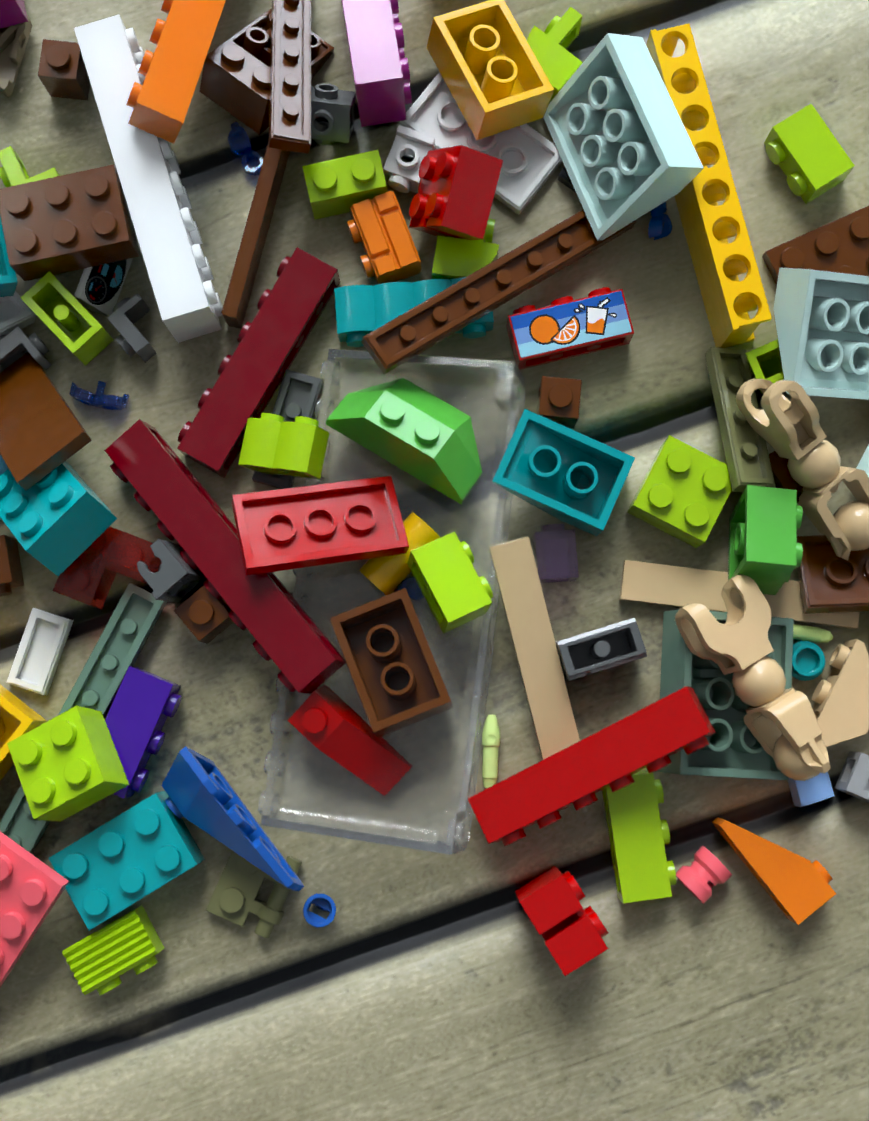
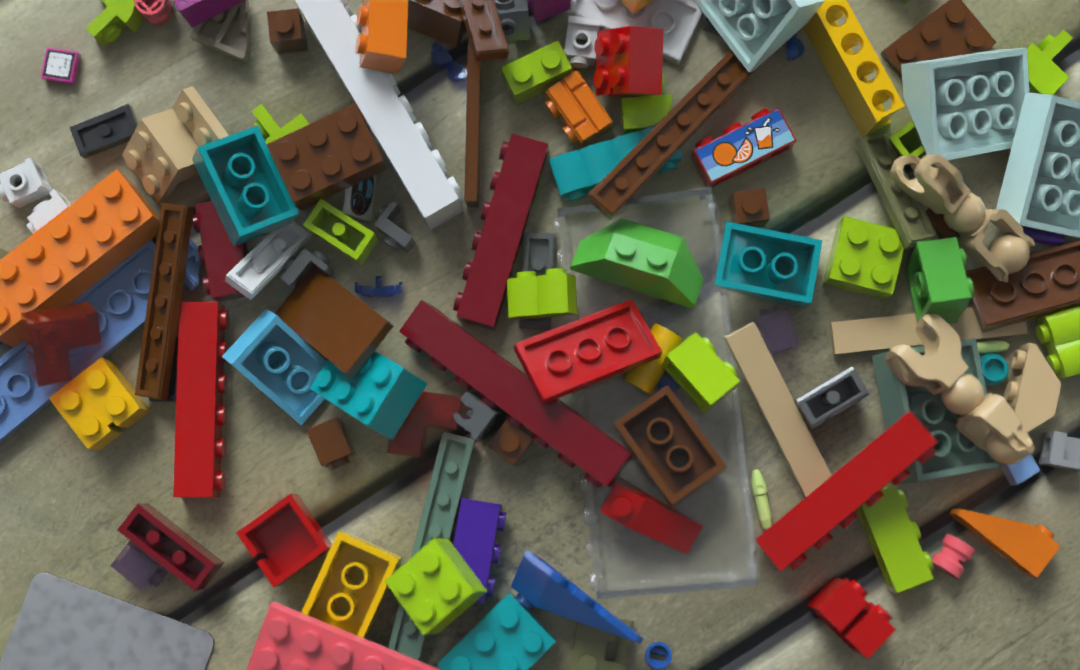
camera: 10 degrees left, 0 degrees up
(39, 651) = (382, 503): white tile -> none

